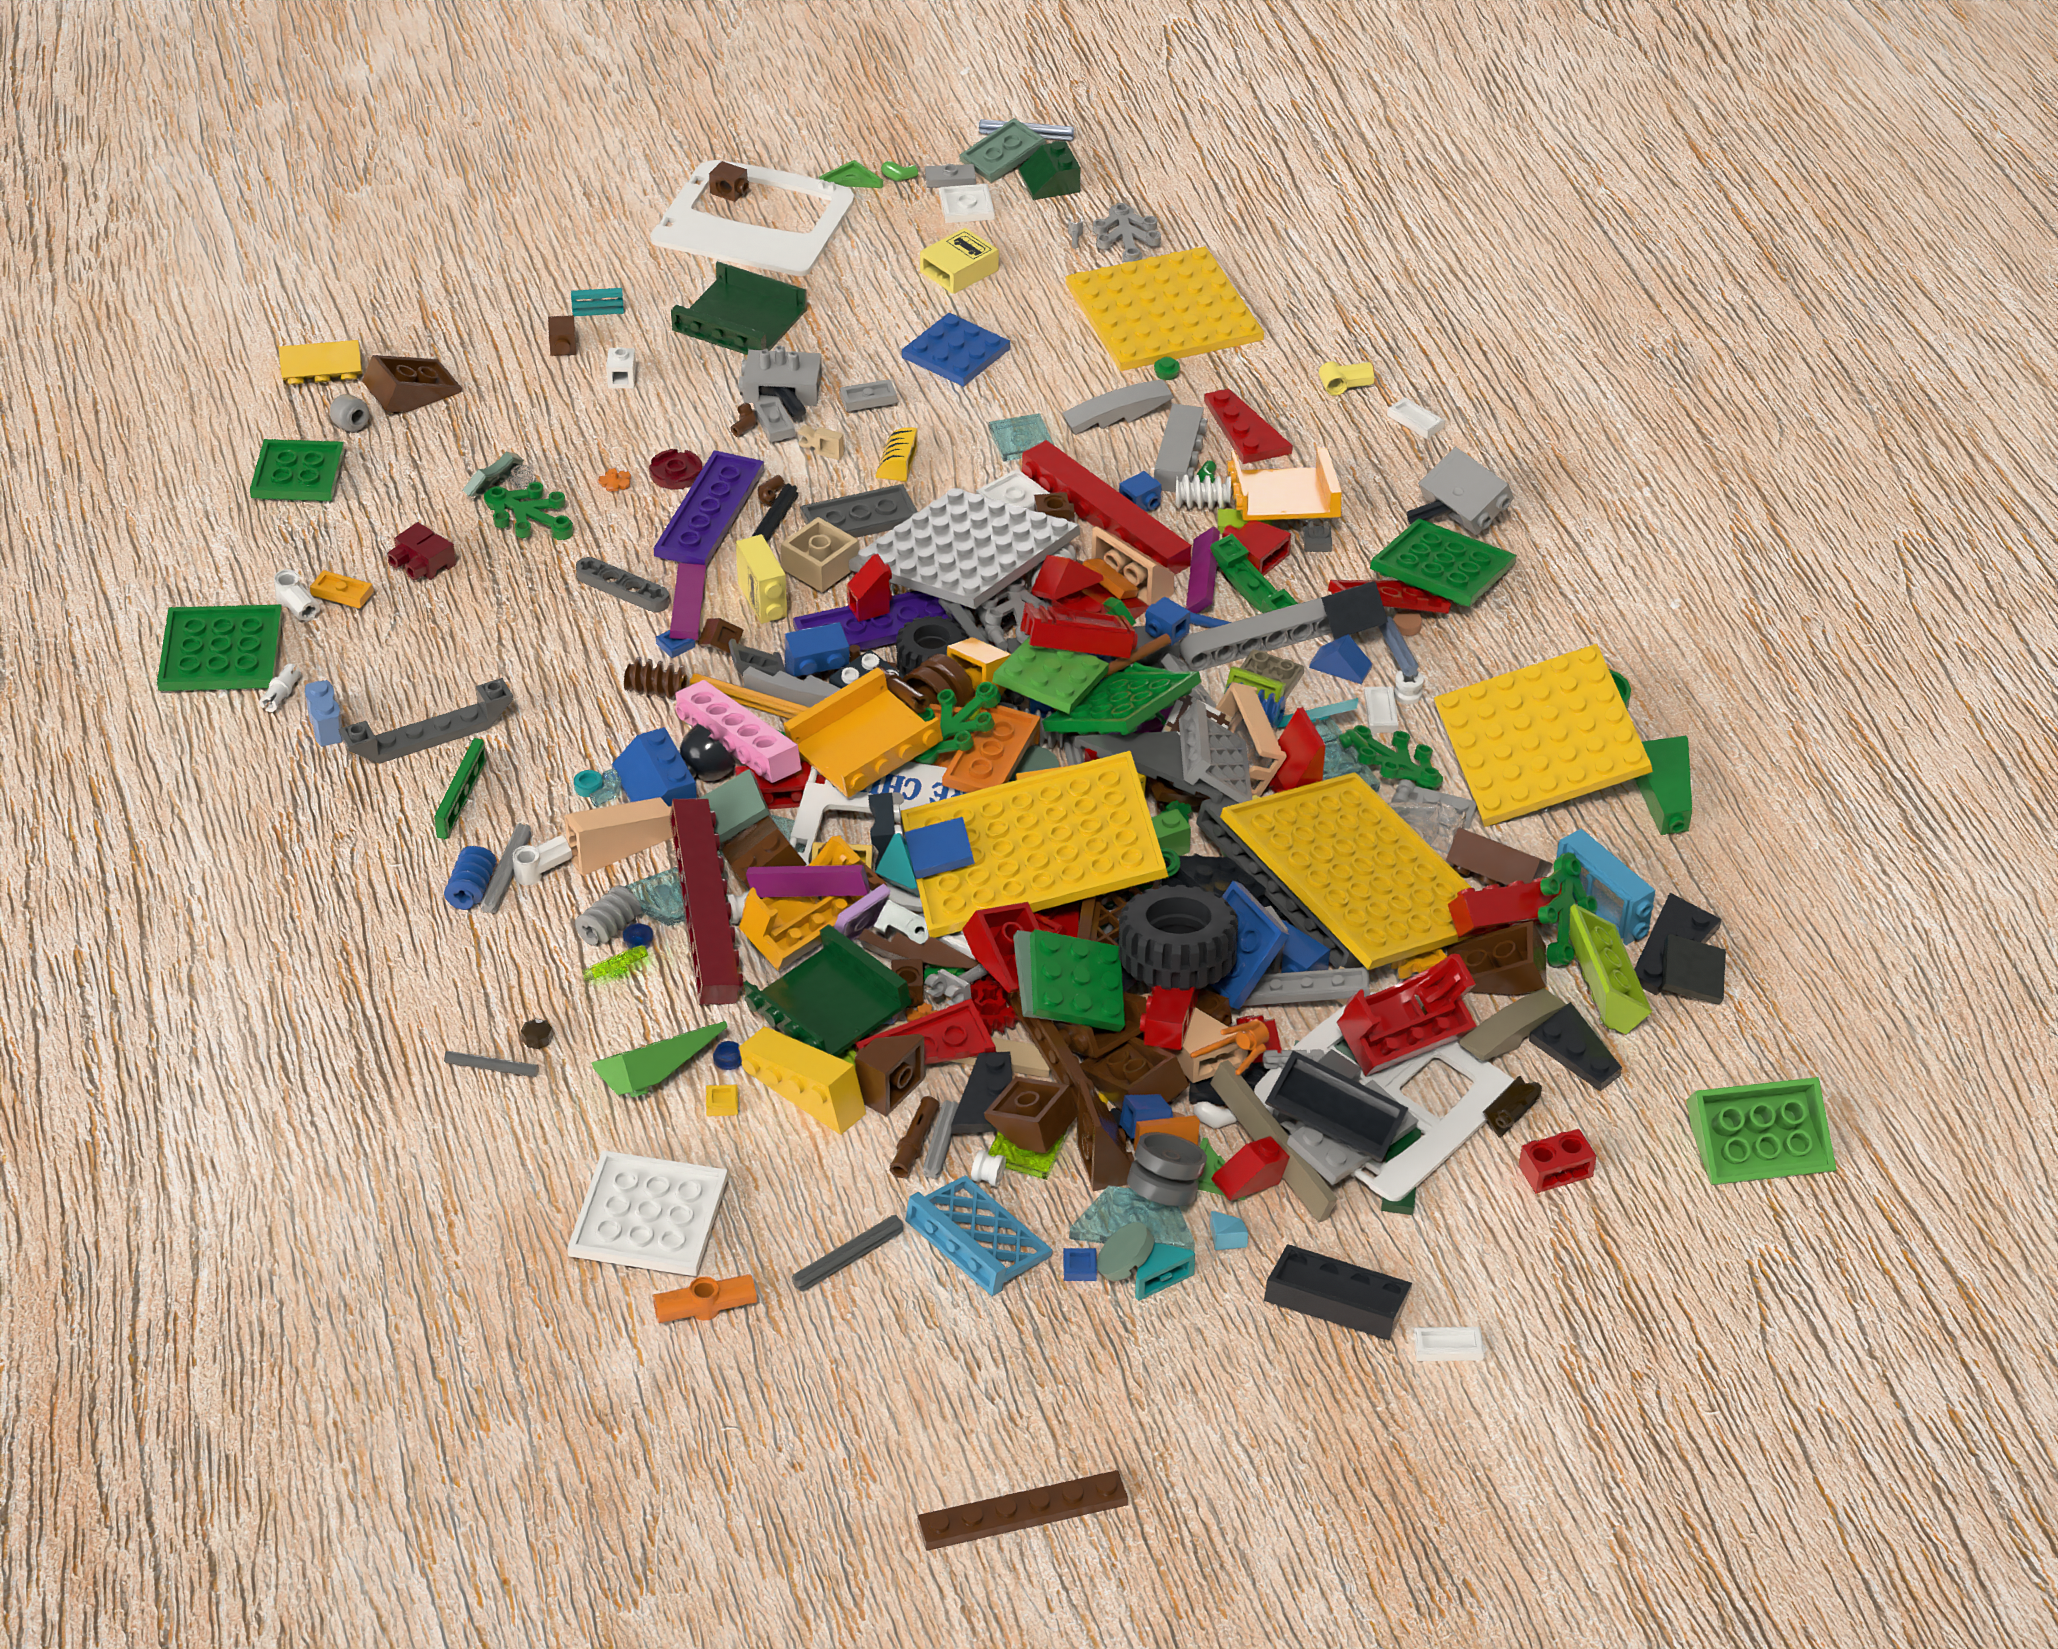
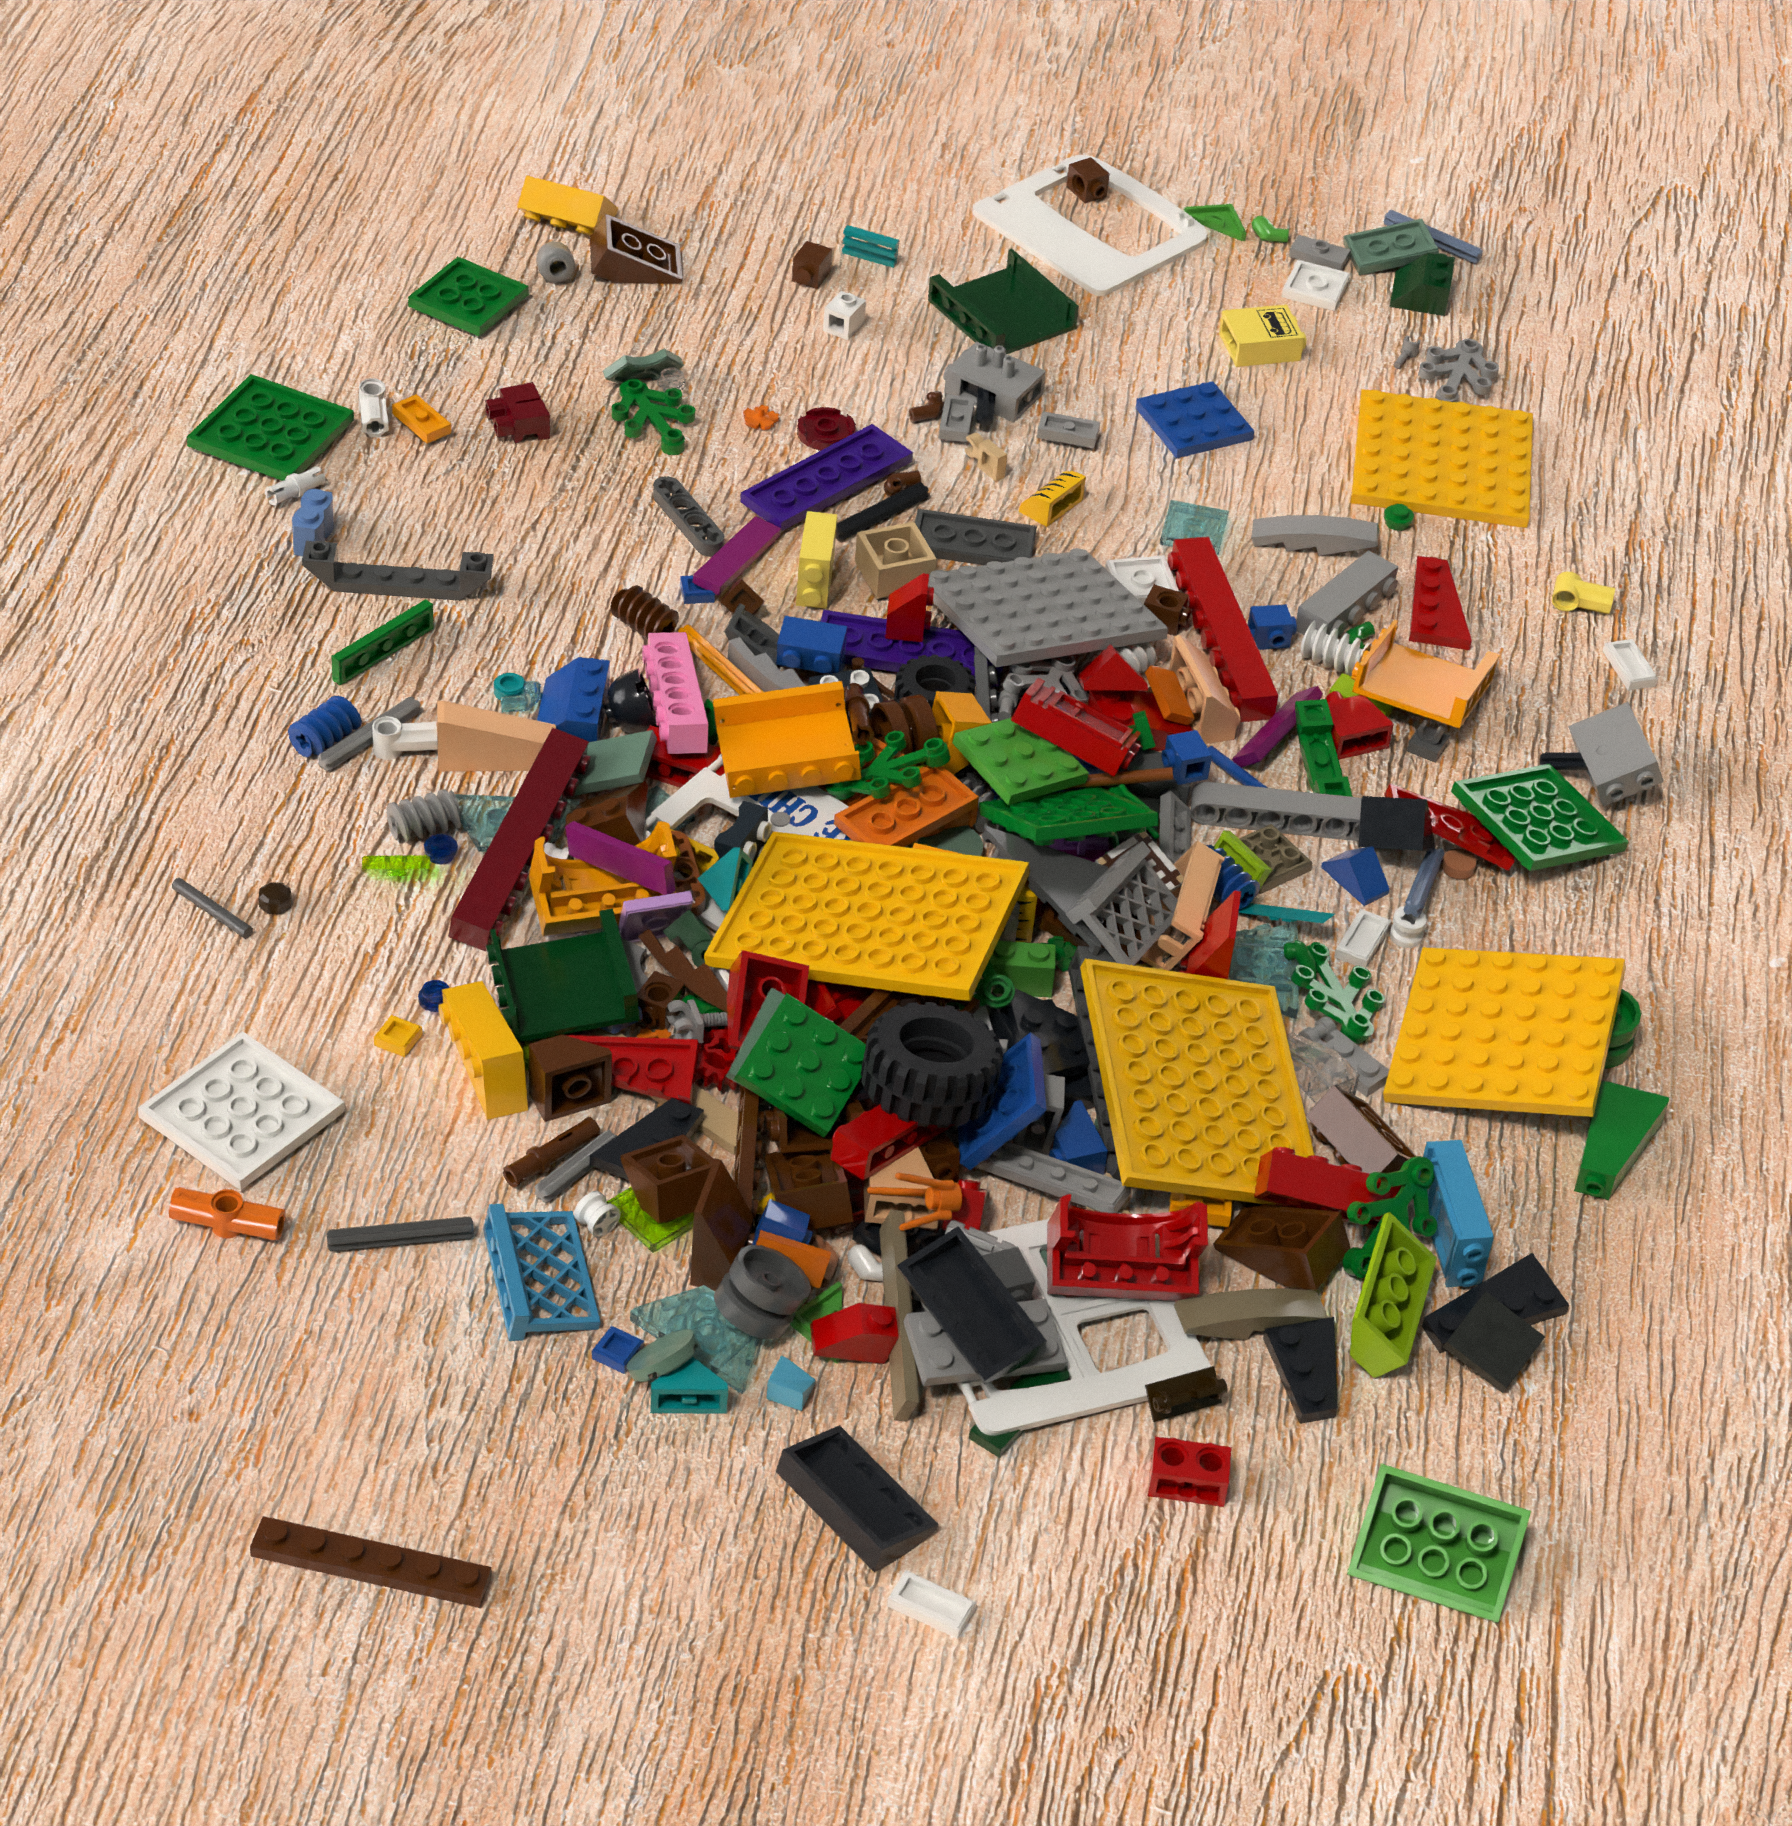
camera: 25 degrees right, 0 degrees up
(649, 1065) = (346, 970): bright green wedge -> none
(939, 847) = (774, 880): blue tile -> none

